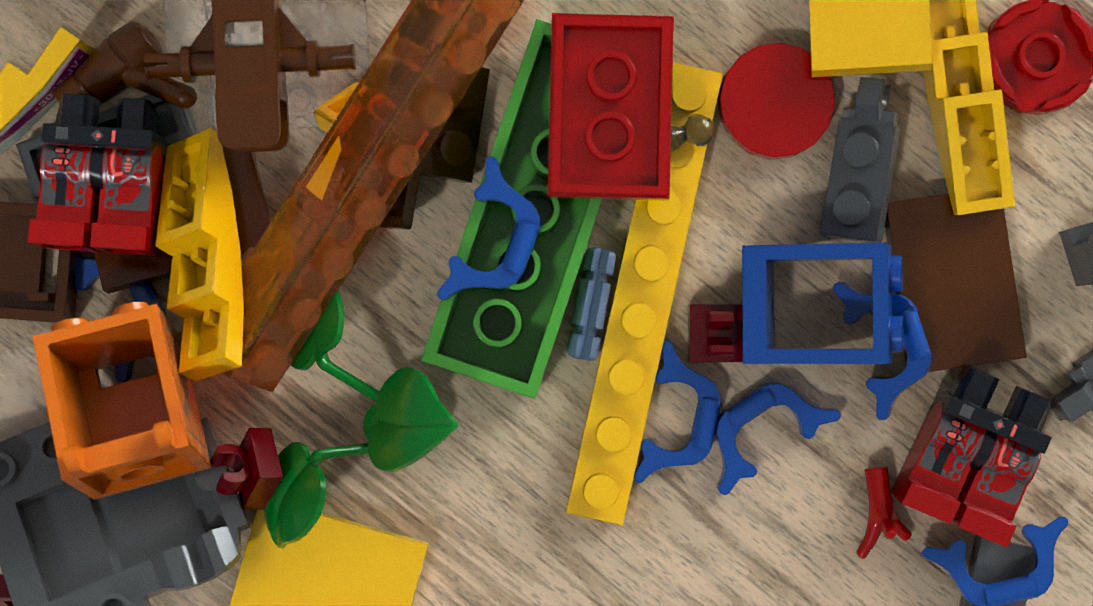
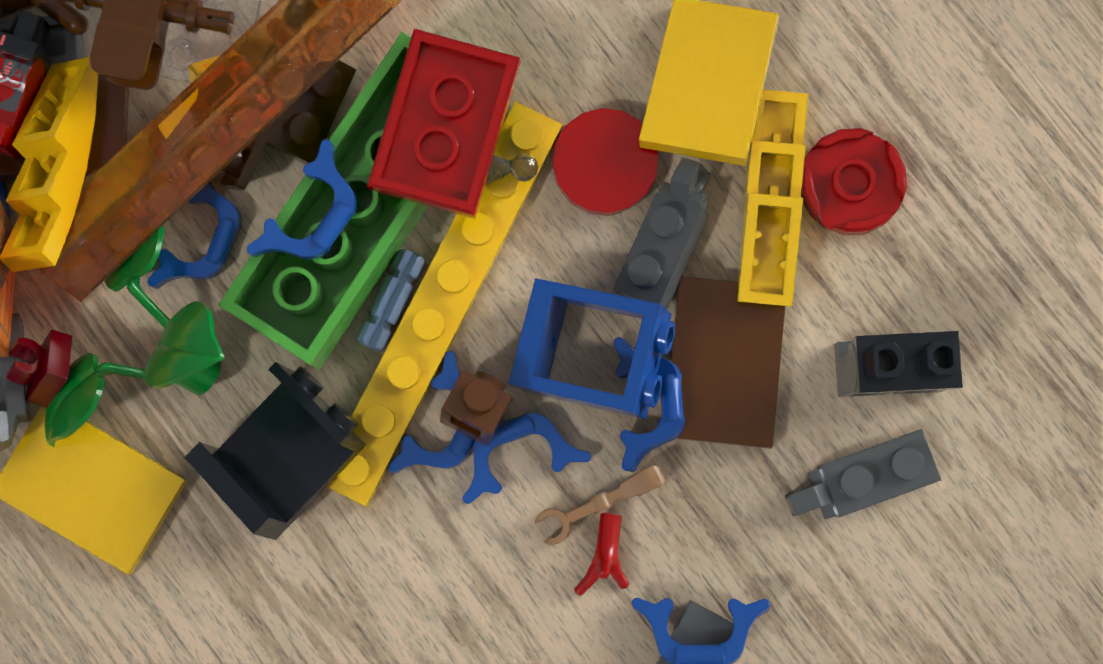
camera: 20 degrees right, 5 degrees down
(396, 295) = (219, 249): none -> blue helmet
(522, 495) = (280, 454): none -> black panel
(715, 333) = (494, 352): dark red tile -> none
(717, 395) = (476, 406): none -> reddish brown brick
(898, 428) = (636, 485): none -> medium nougat piece
(973, 460) = (718, 516): hips -> none

